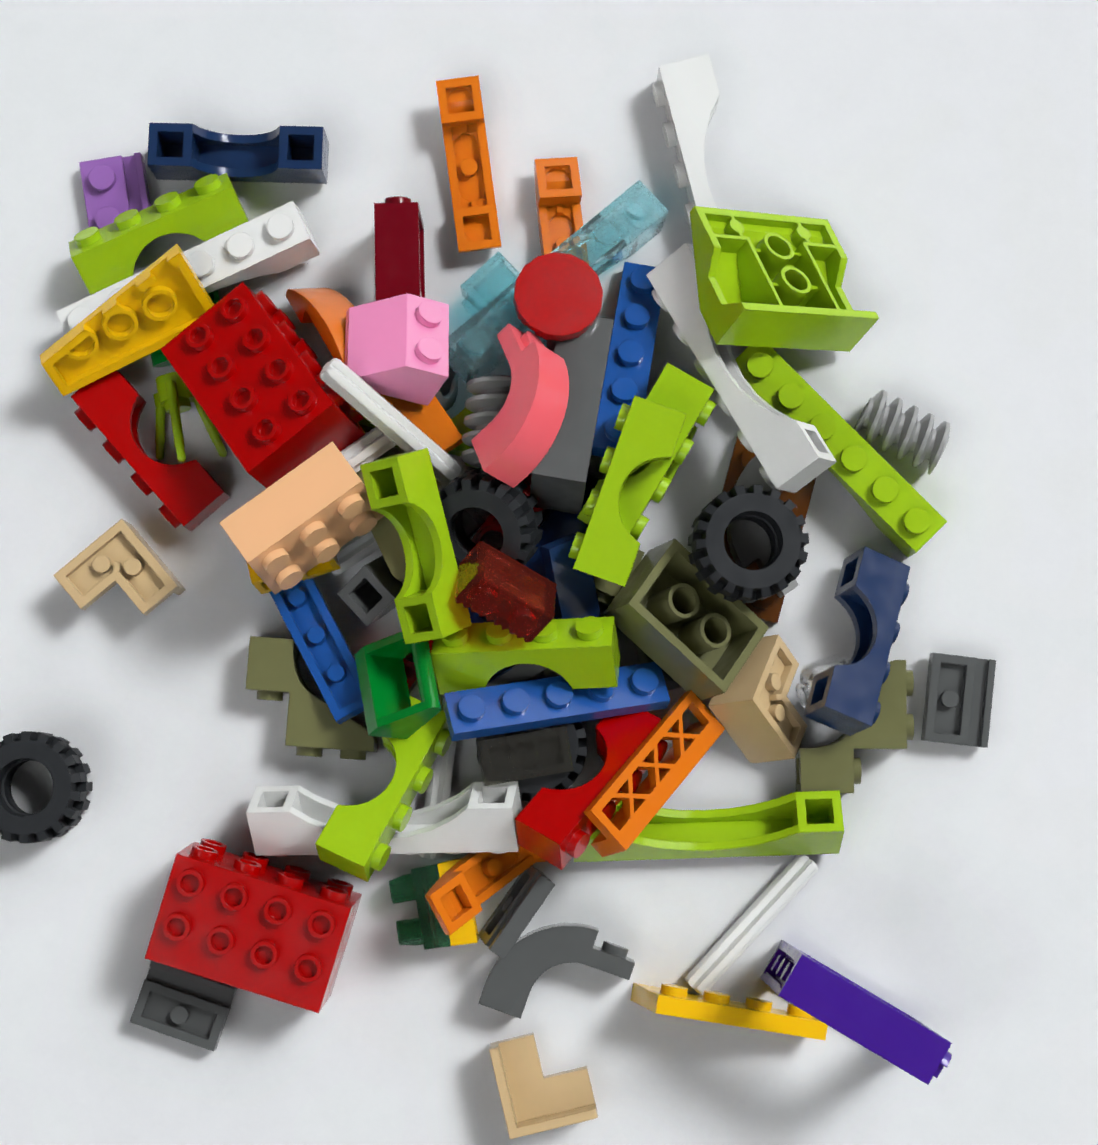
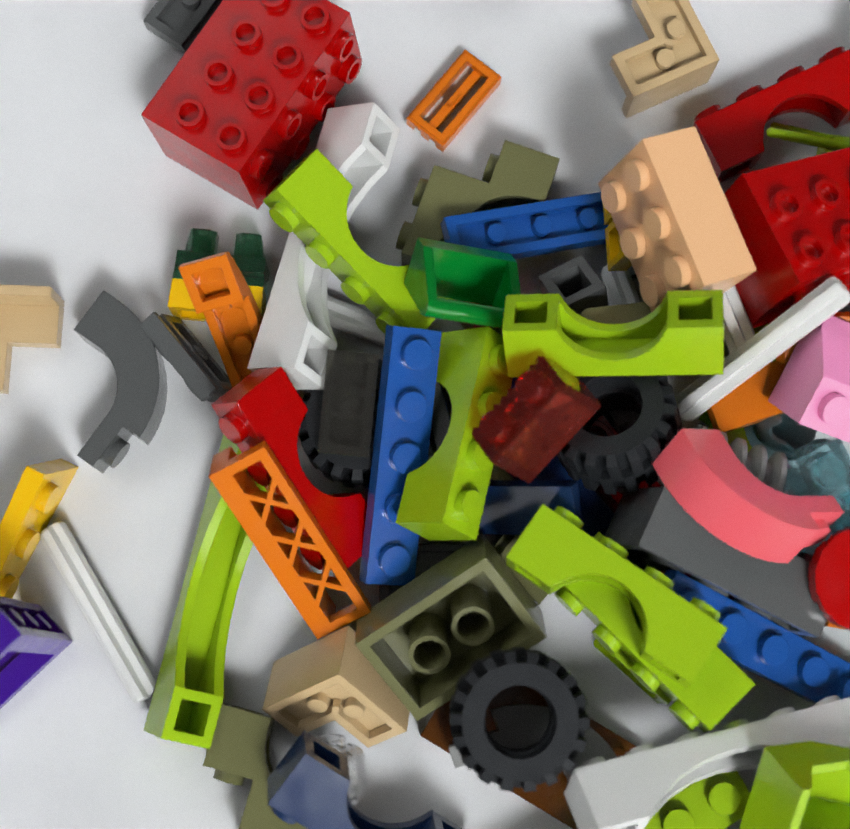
camera: 100 degrees right, 5 degrees down
(244, 761) = (430, 129): none -> orange tile

